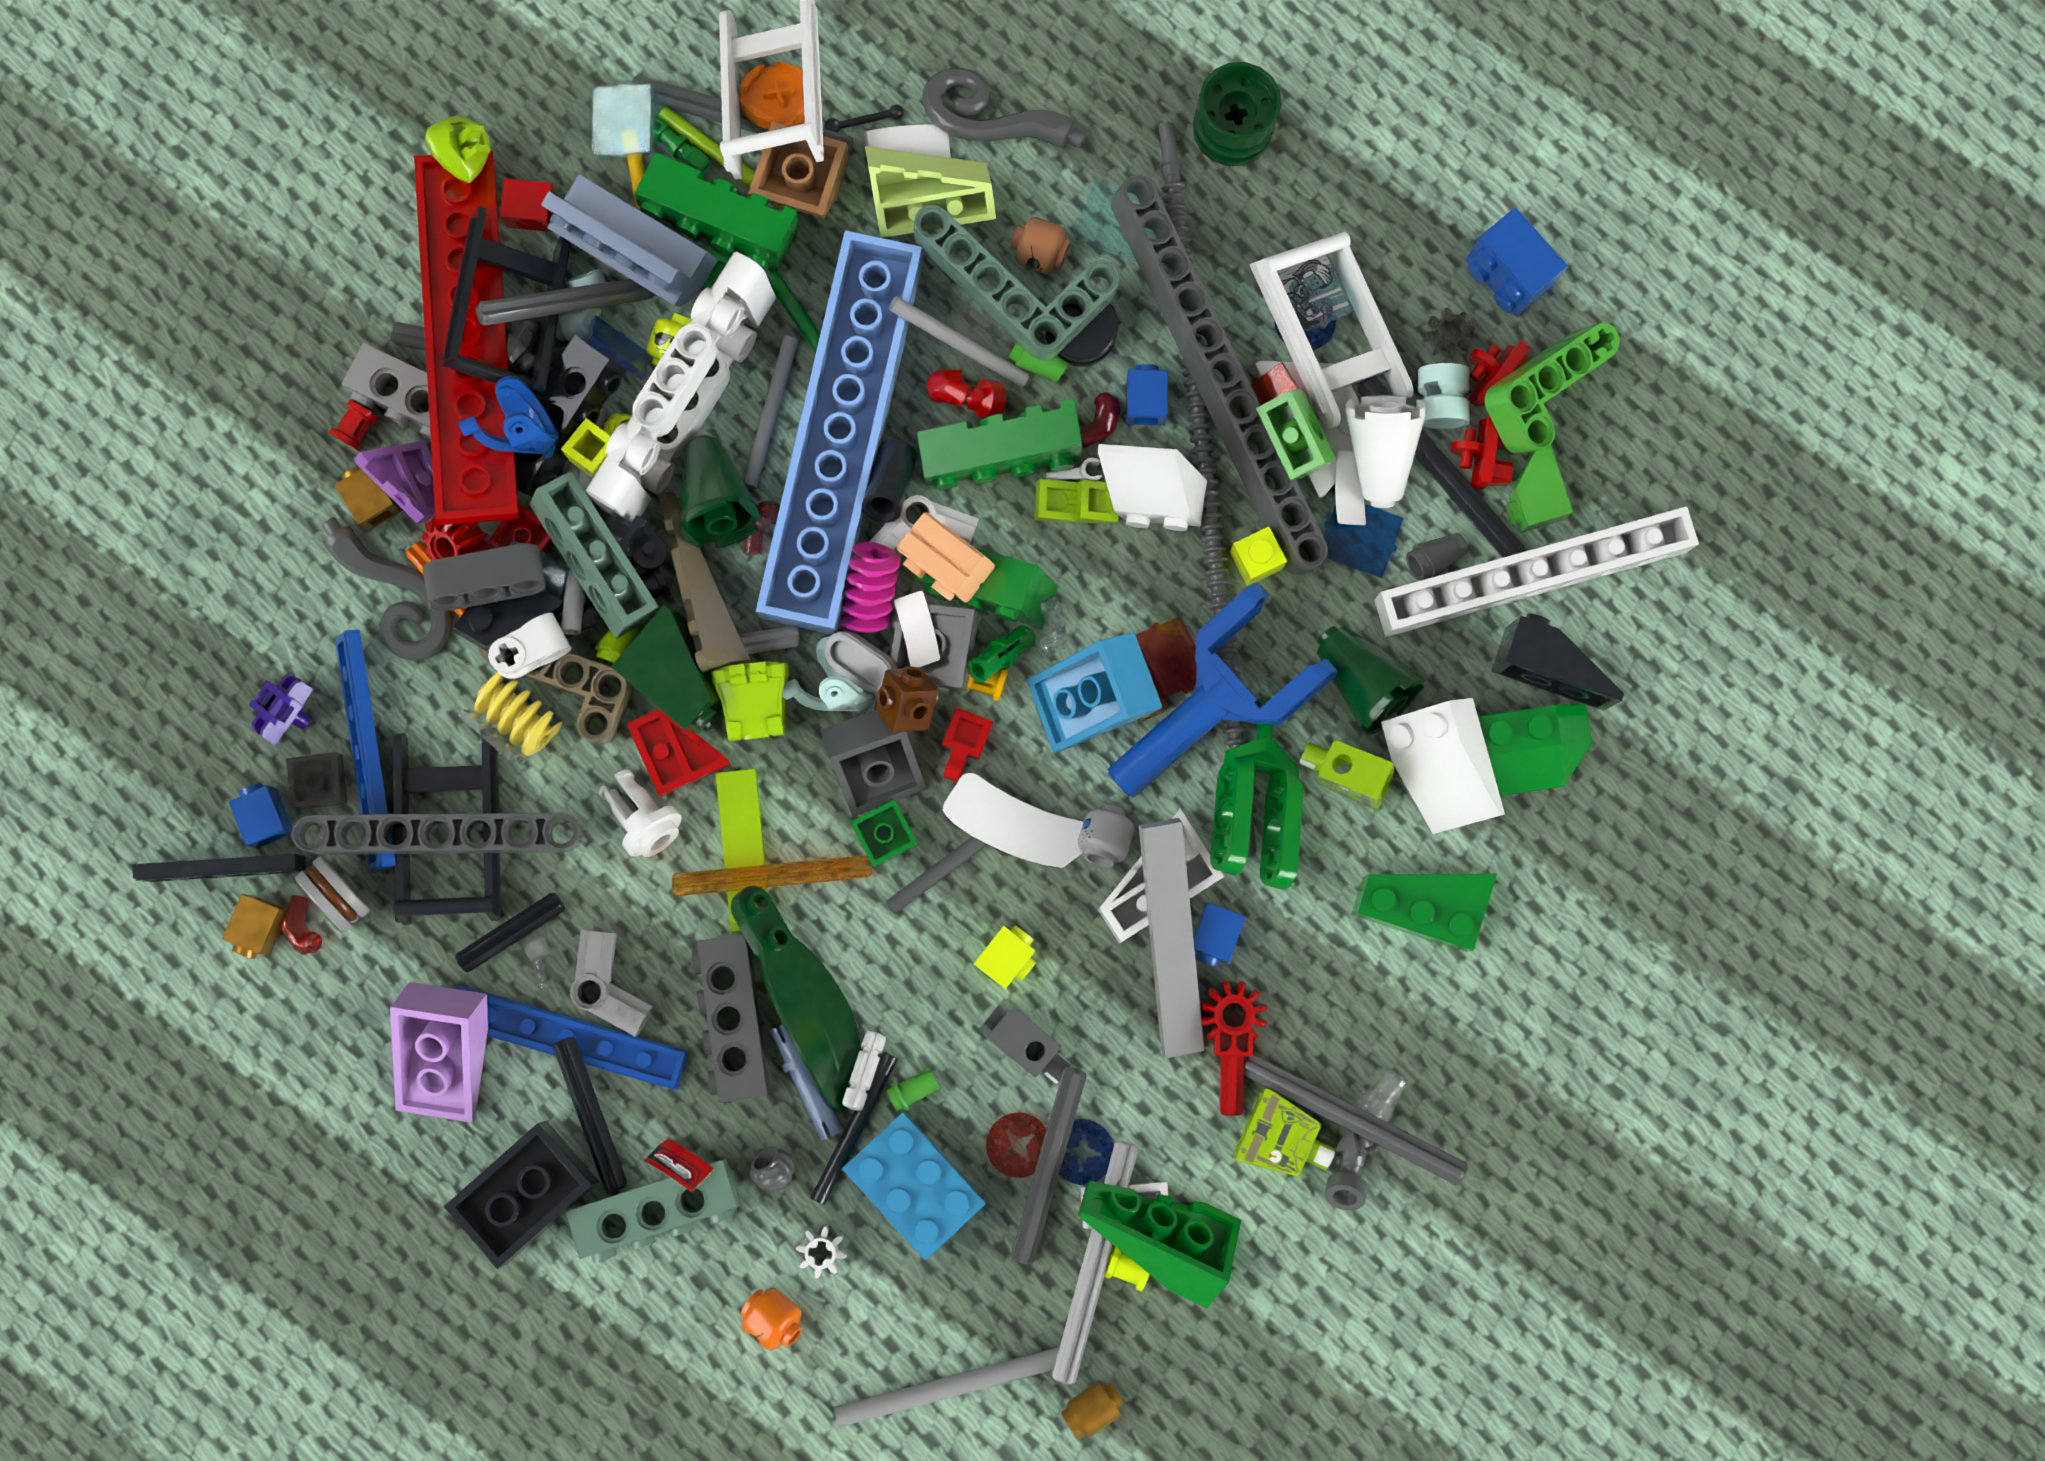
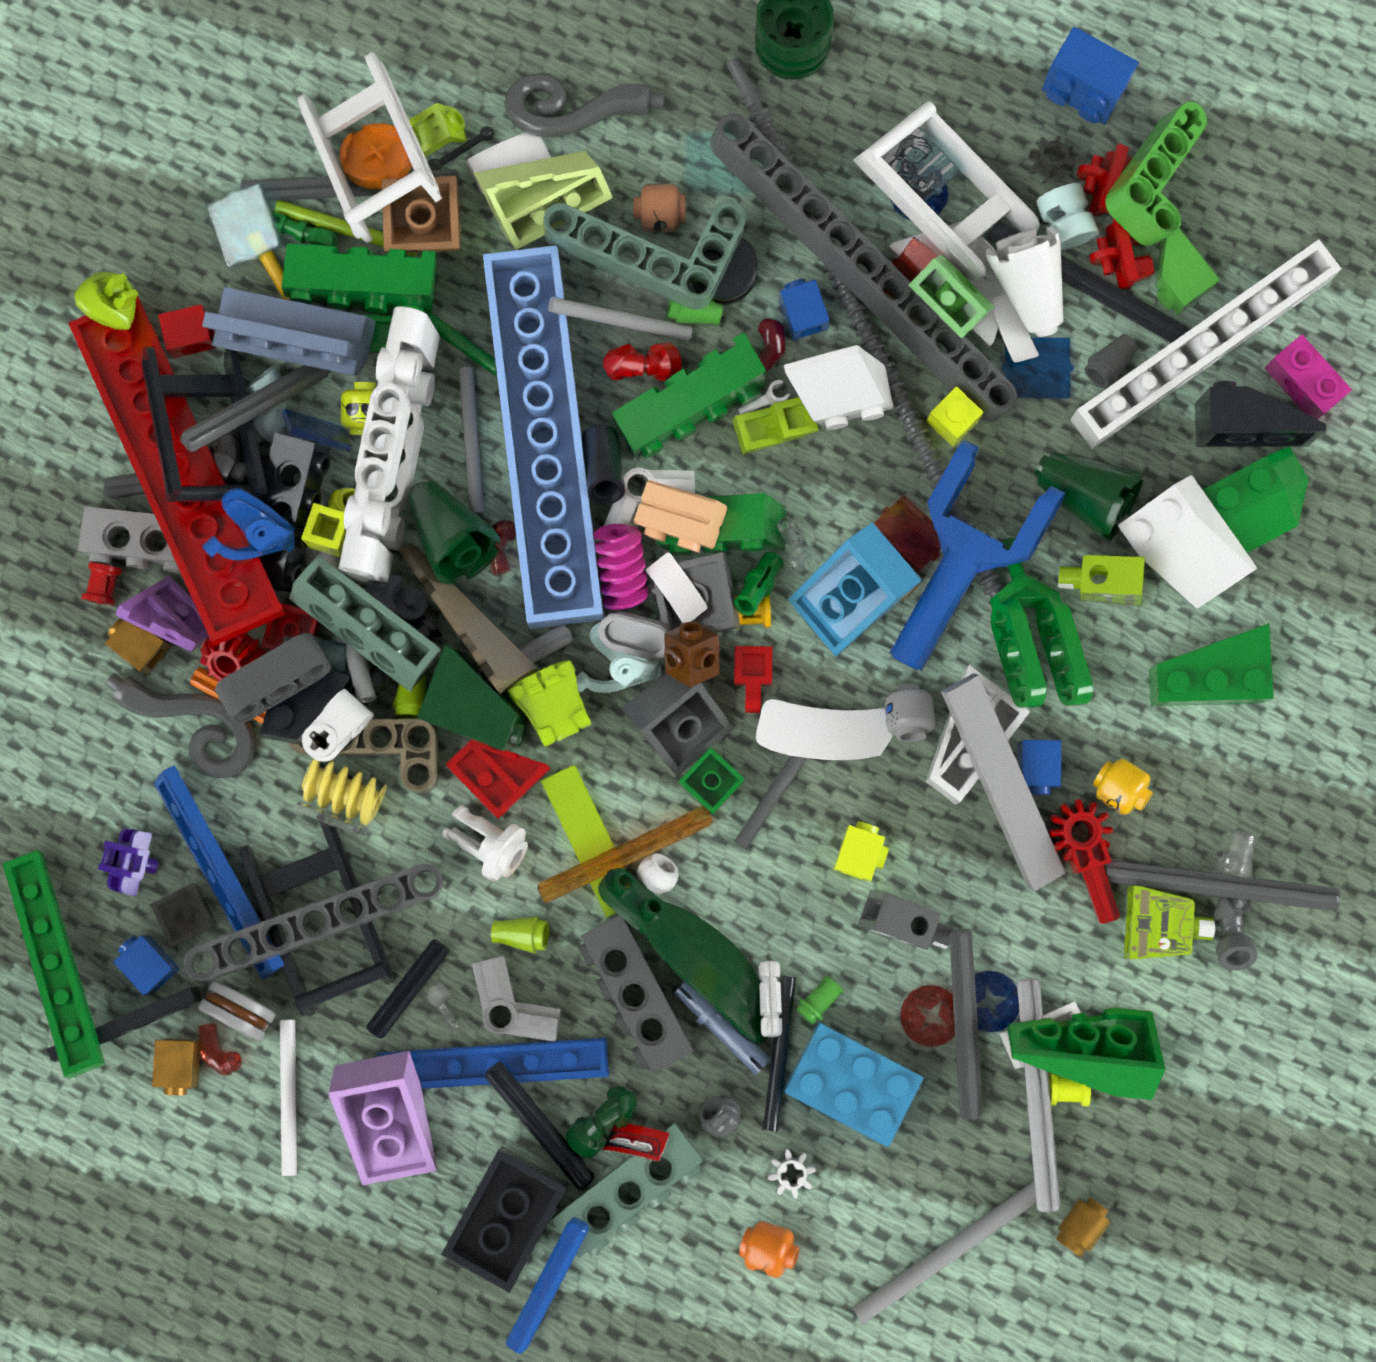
camera: 15 degrees left, 0 degrees up
(169, 784) = (53, 964): none -> green plate
(354, 997) = (288, 1098): none -> white bar
(539, 1275) = (547, 1285): none -> blue axle
(634, 1140) = (588, 1134): none -> dark green arm
(643, 918) = (522, 933): none -> lime cone
(797, 906) = (657, 873): none -> white piece
(847, 89) = (438, 127): none -> lime bracket
(1292, 985) = (1123, 786): none -> yellow head
(1627, 642) = (1307, 378): none -> dark pink brick

